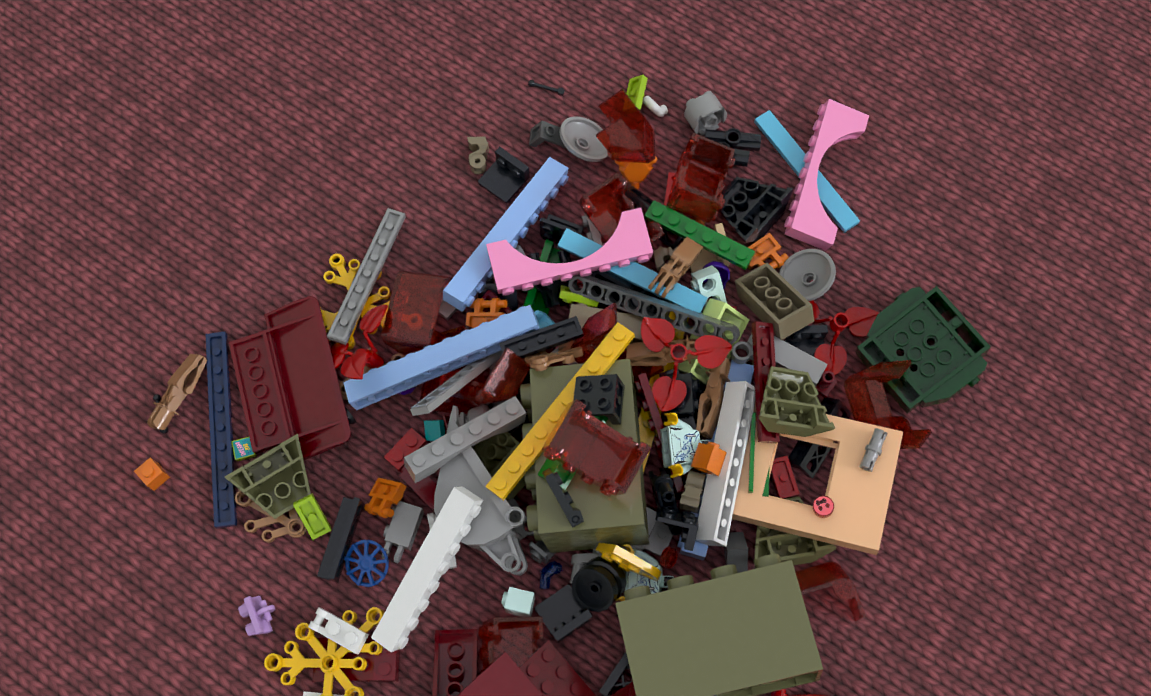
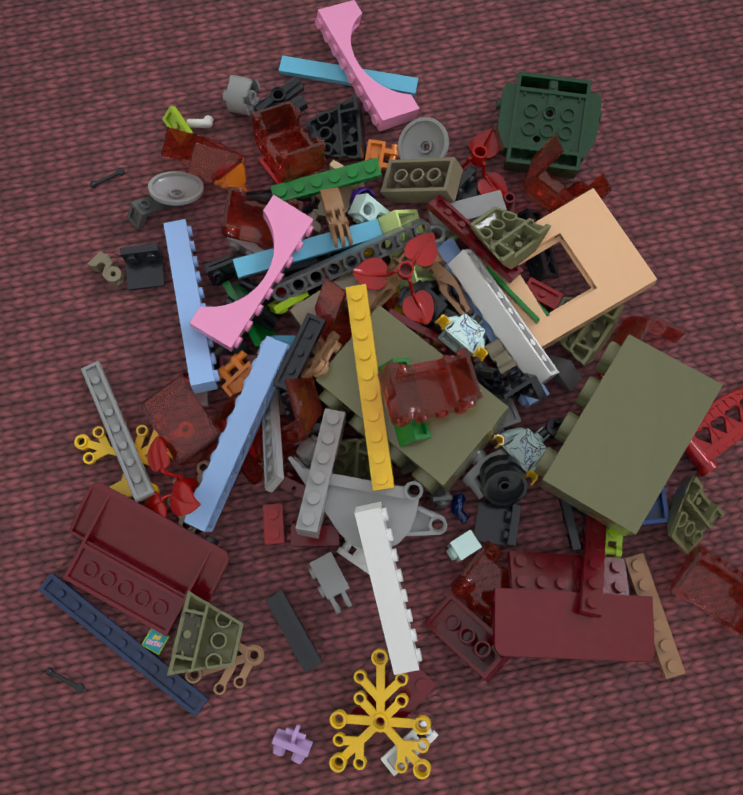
camera: 45 degrees left, 5 degrees up
(152, 474) = (106, 728): orange brick -> none
(179, 386) = (58, 644): medium nougat arm -> none
(312, 516) = (258, 636): lime plate -> none
(339, 631) = (364, 693): white plate -> none
(366, 563) = (330, 628): blue wheel -> none
(383, 496) = (293, 565): orange plate -> none
(434, 429) = (283, 491): teal tile -> none
(564, 499) = (439, 443): black hinge -> none
(601, 395) = (388, 346): black bracket -> none
(628, 561) = (509, 445): yellow plate -> none
(668, 557) = (525, 417): clear red tile -> none
(709, 458) = (491, 325): orange brick -> none
(823, 506) = (594, 285): tile -> none
(873, 449) = (588, 217): light grey pin -> none

